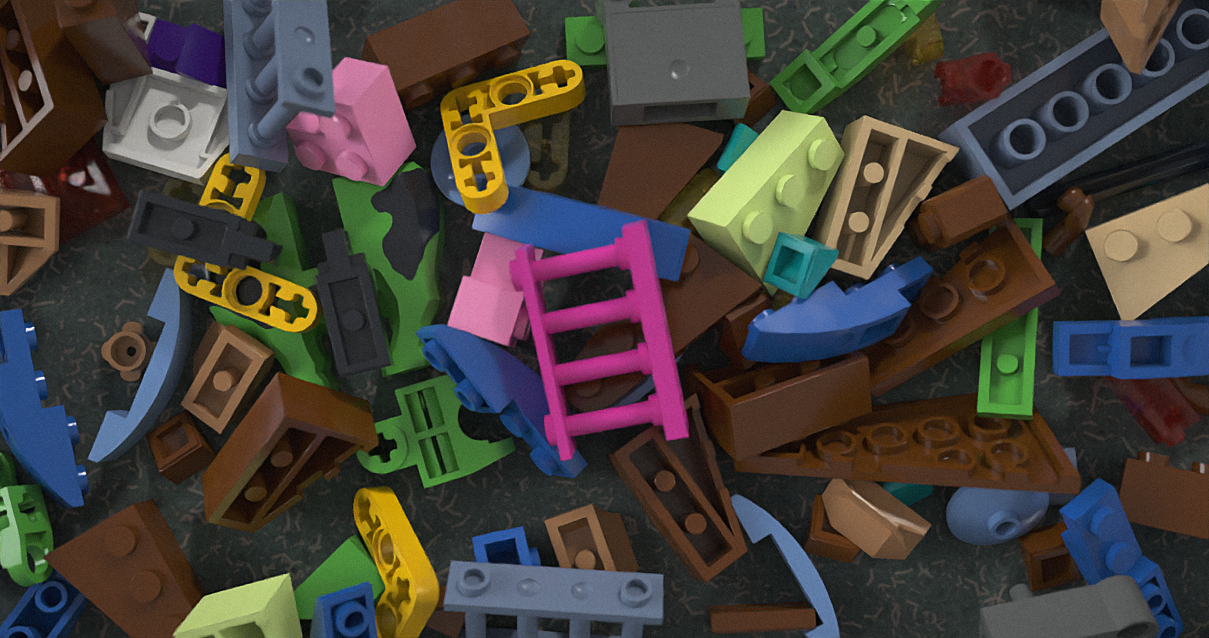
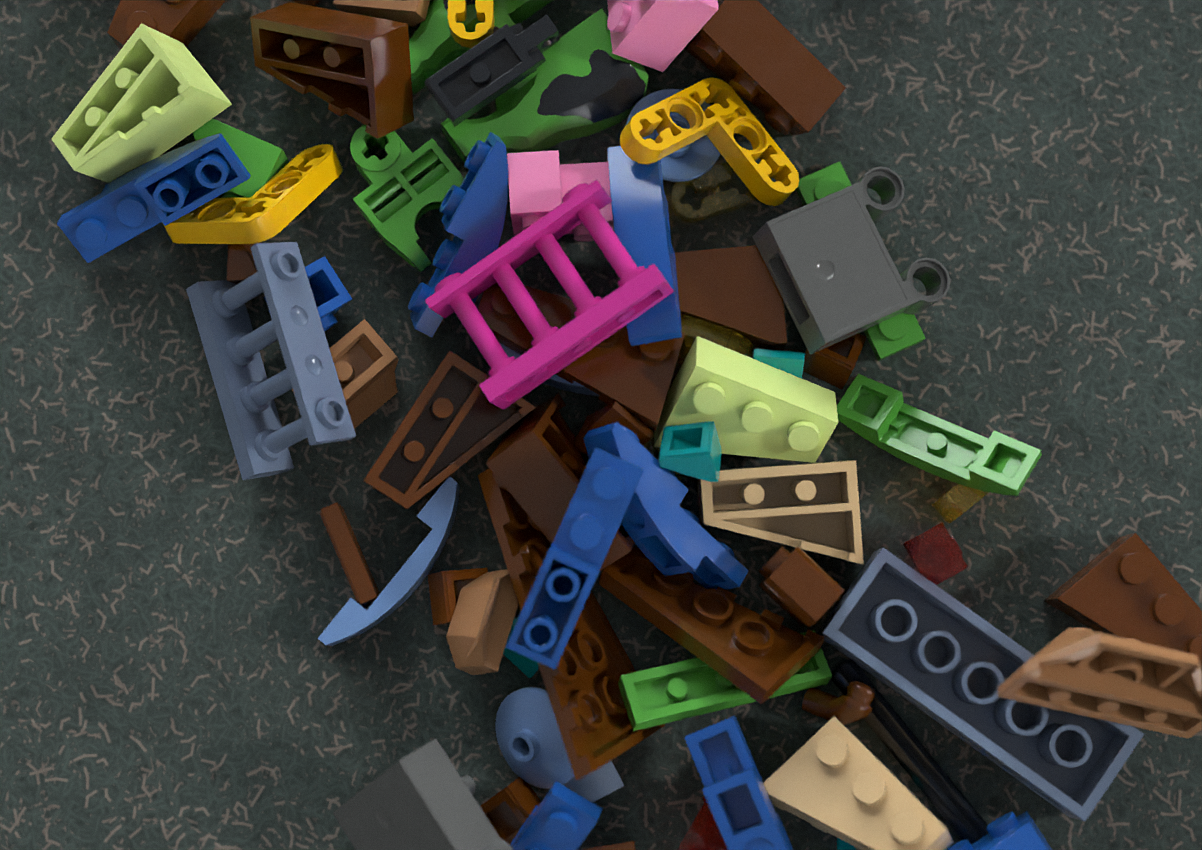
camera: 65 degrees right, 5 degrees down
(867, 413) = (575, 558): none -> blue slope

